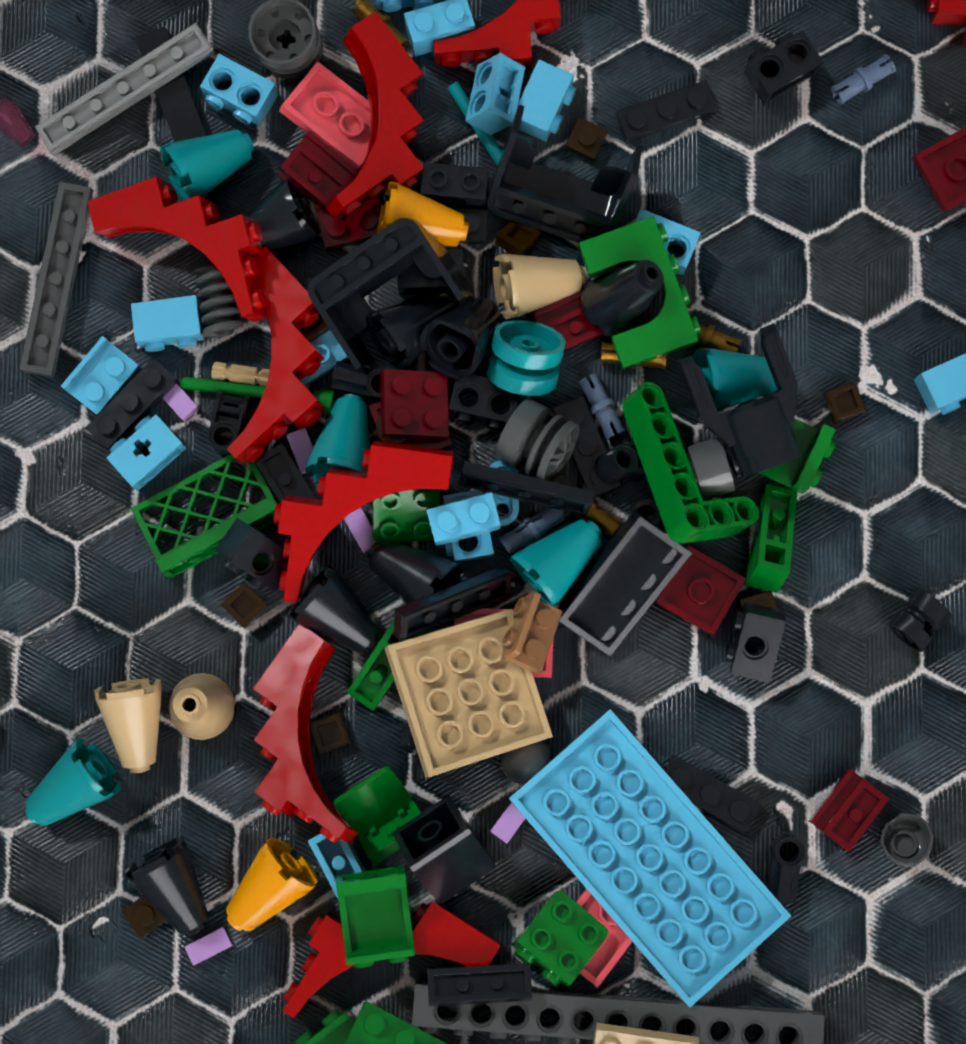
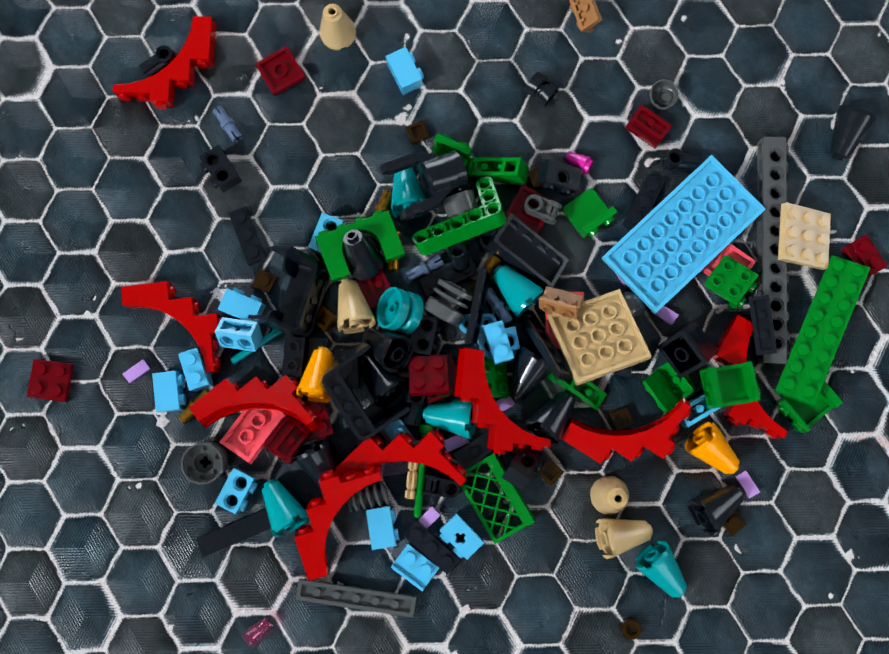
camera: 90 degrees left, 0 degrees up
(124, 89) = (236, 562): light grey tile -> none
(261, 345) = (393, 468): none -> clear purple piece
(692, 694) = (589, 213): none -> green bracket
(698, 611) = (543, 210): none -> dark grey piece
(785, 683) = (579, 161): none -> dark pink cone

